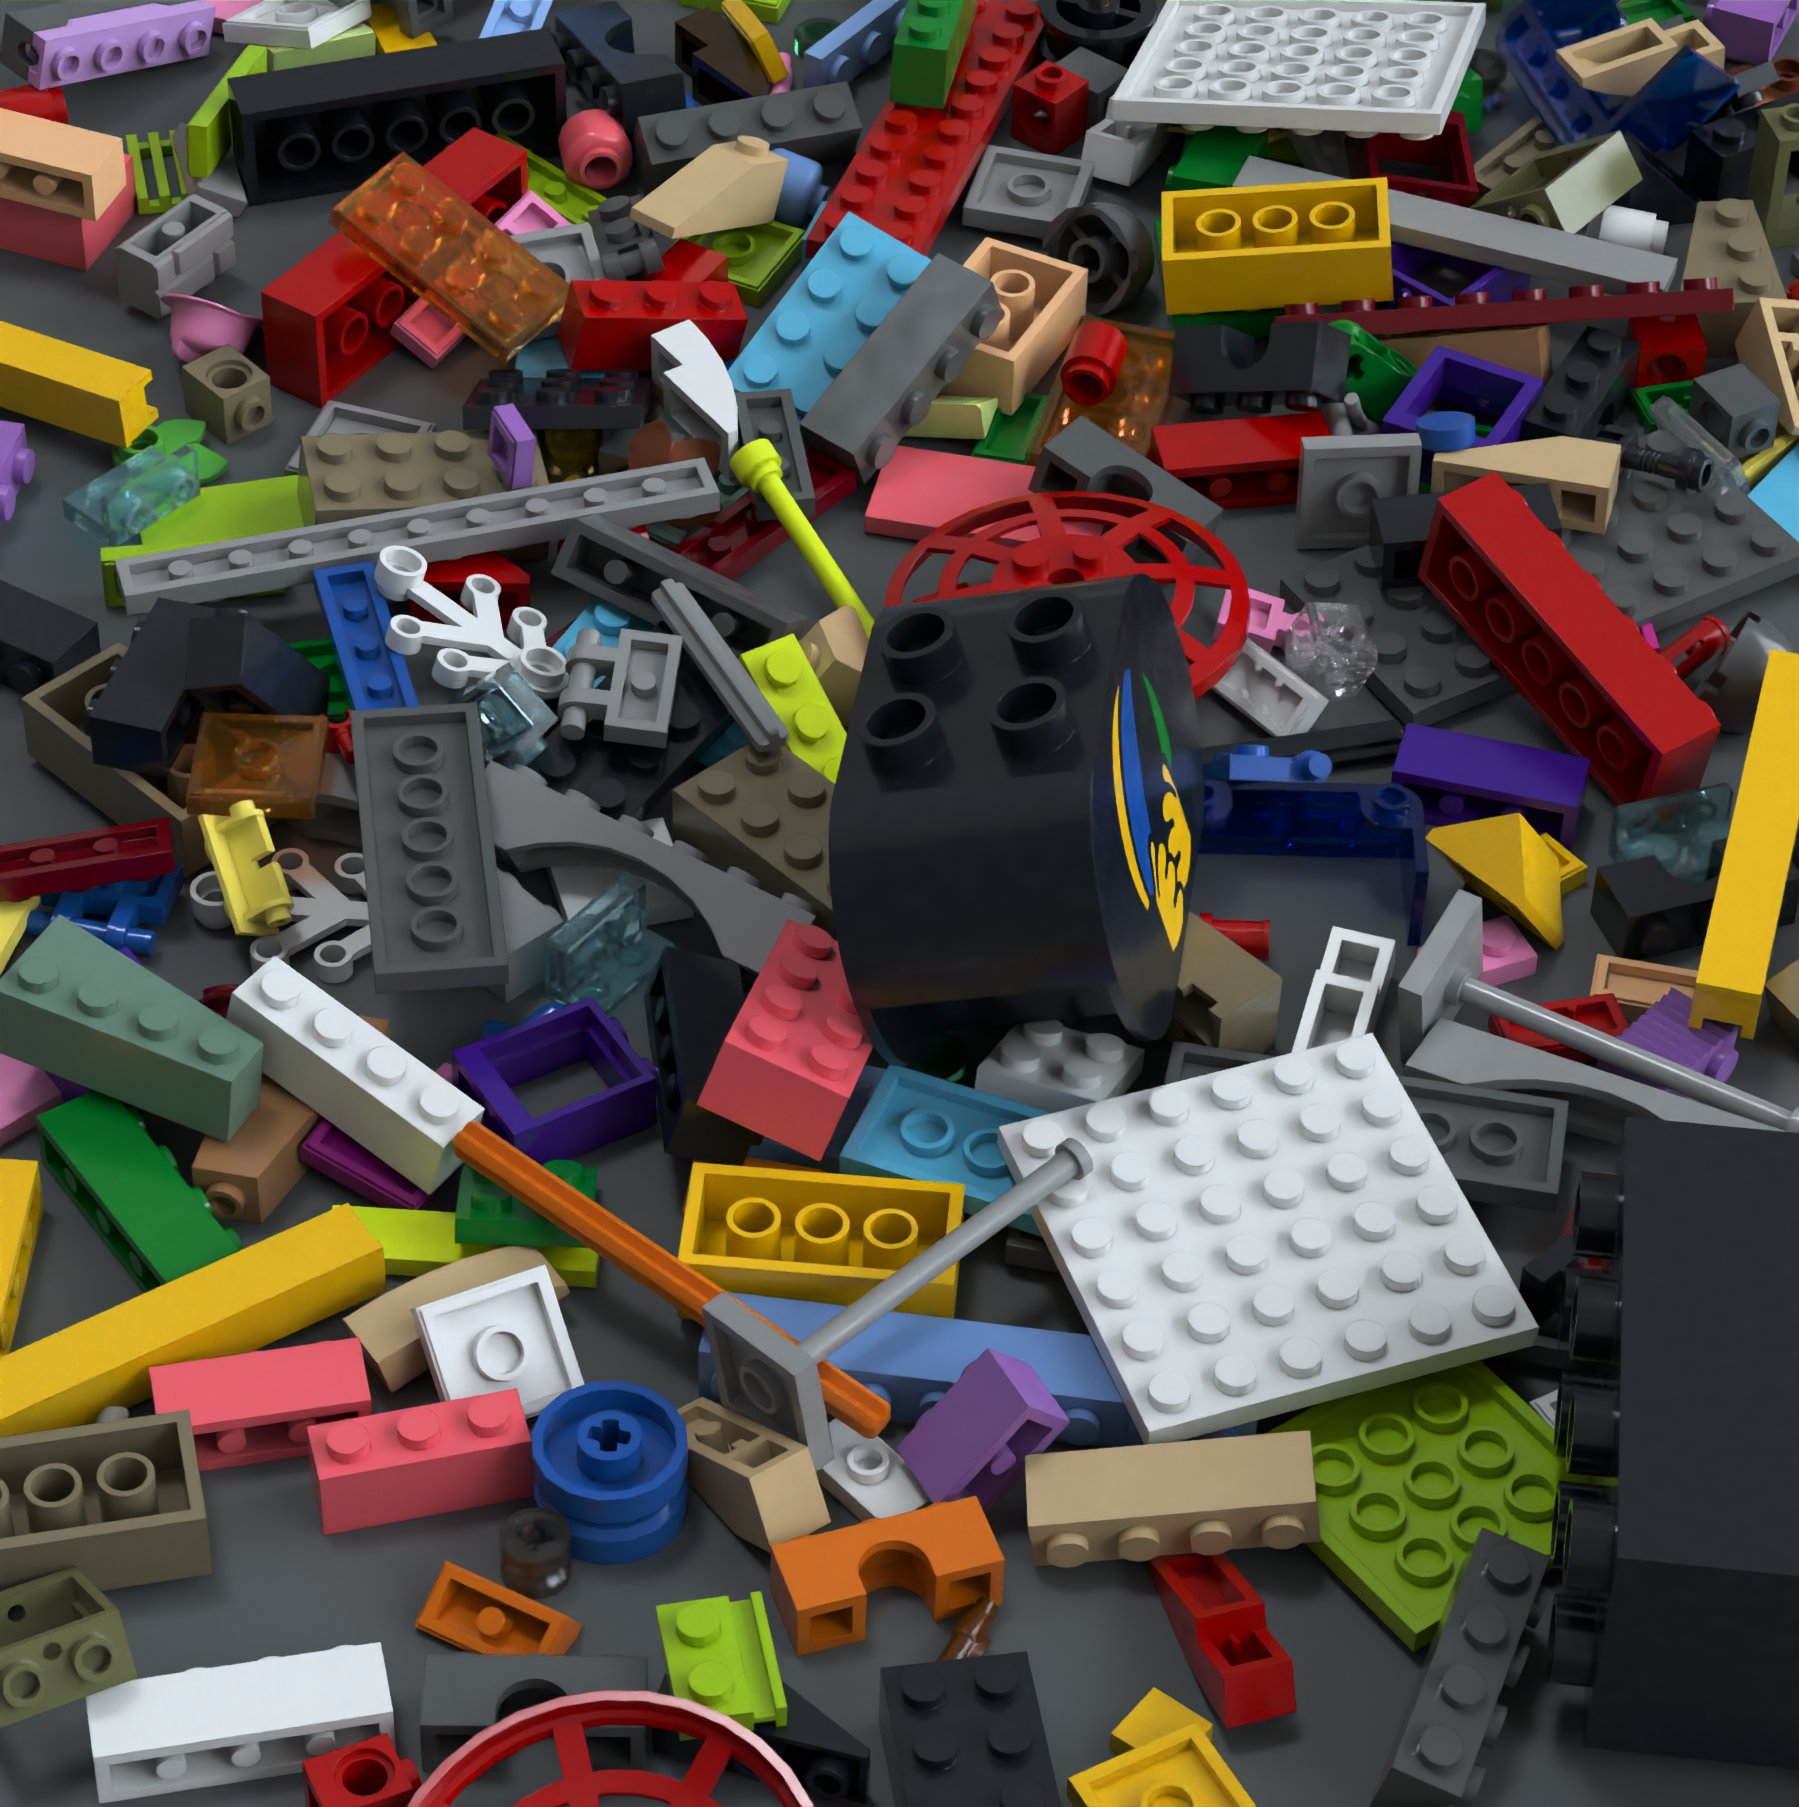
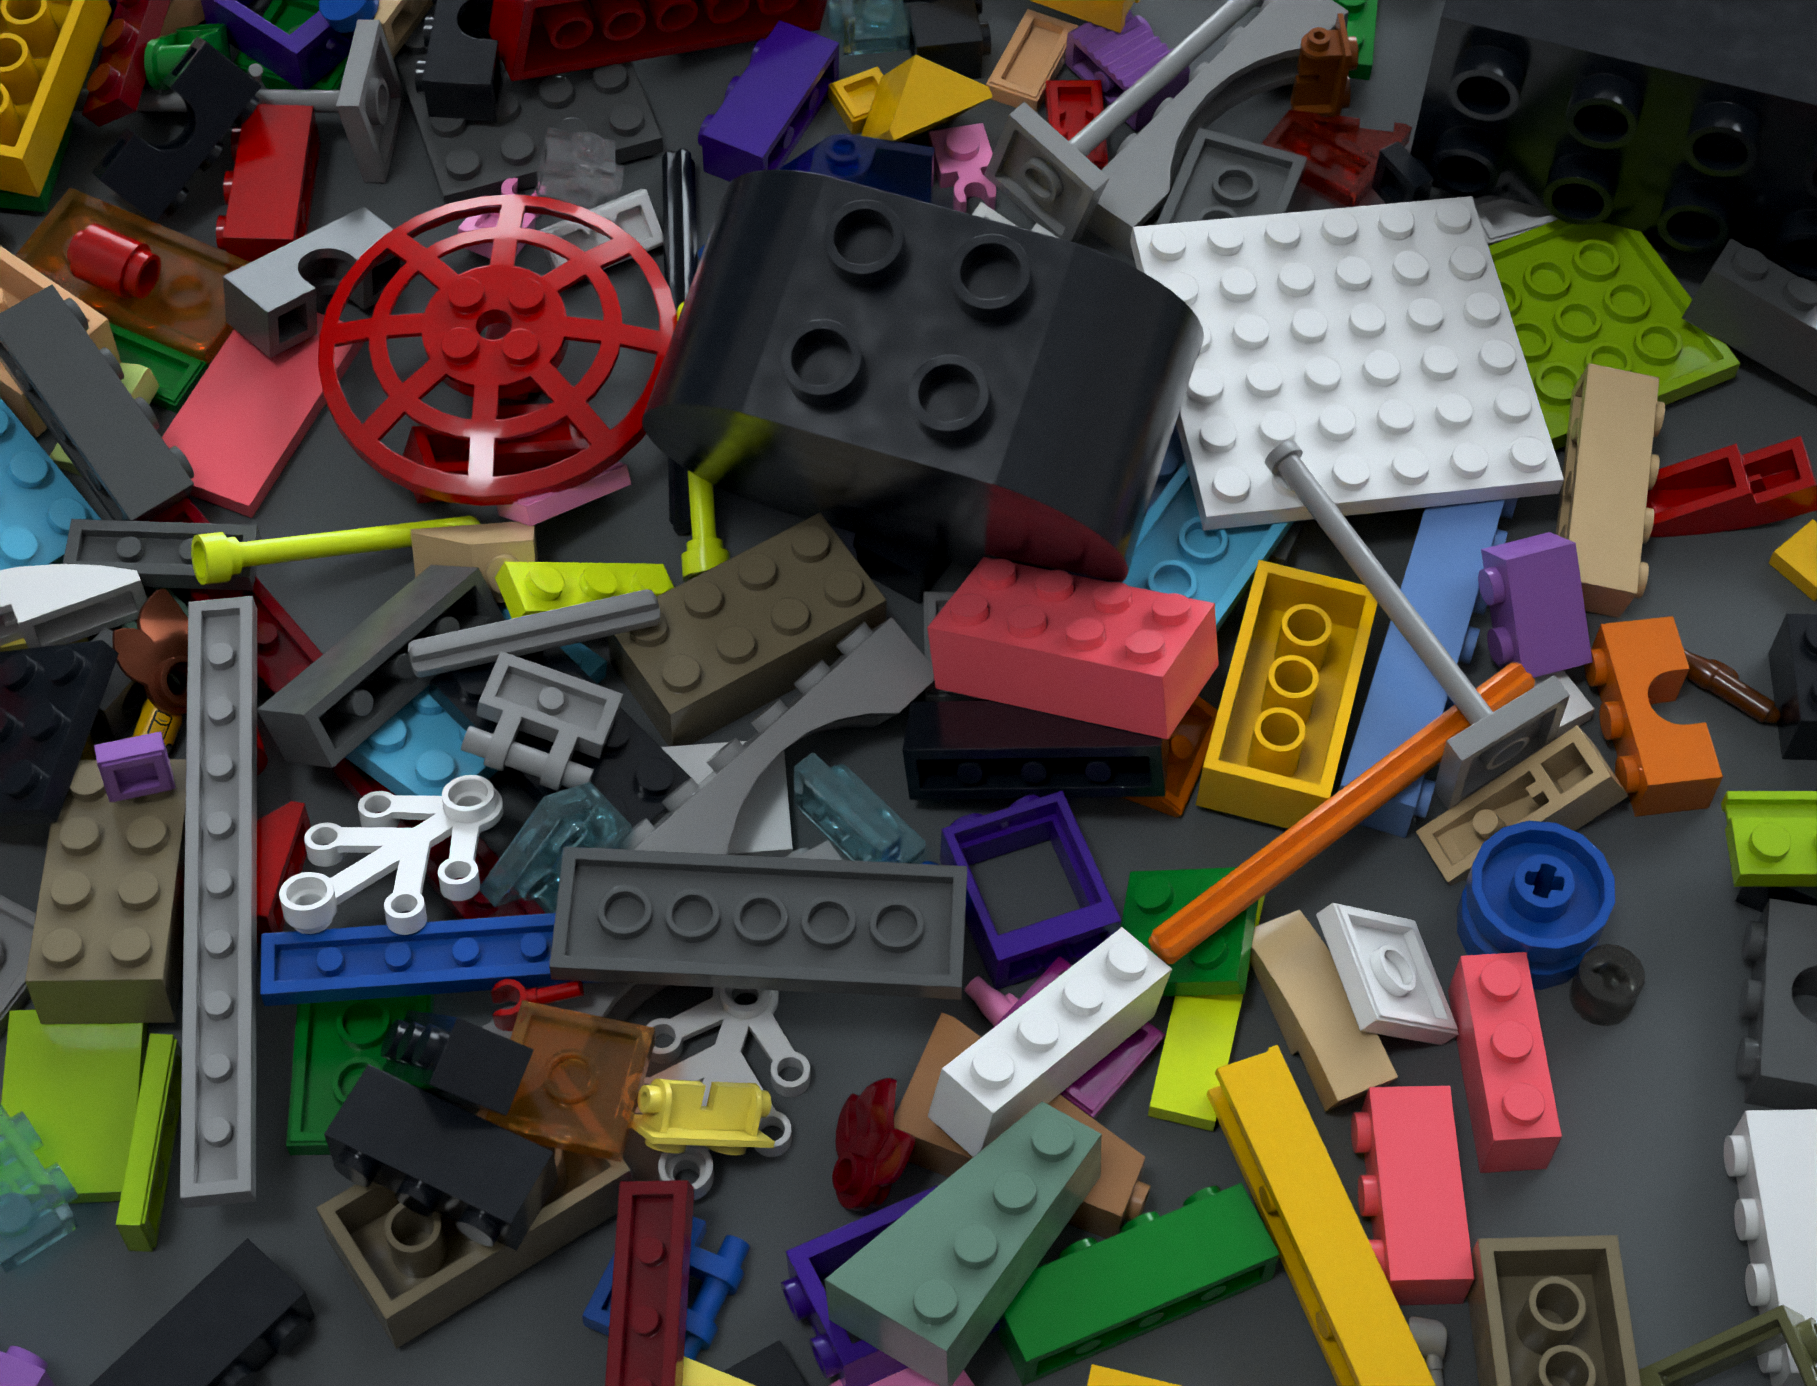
camera: 80 degrees left, 15 degrees up
(492, 1618) = (1670, 1030): orange slope -> none

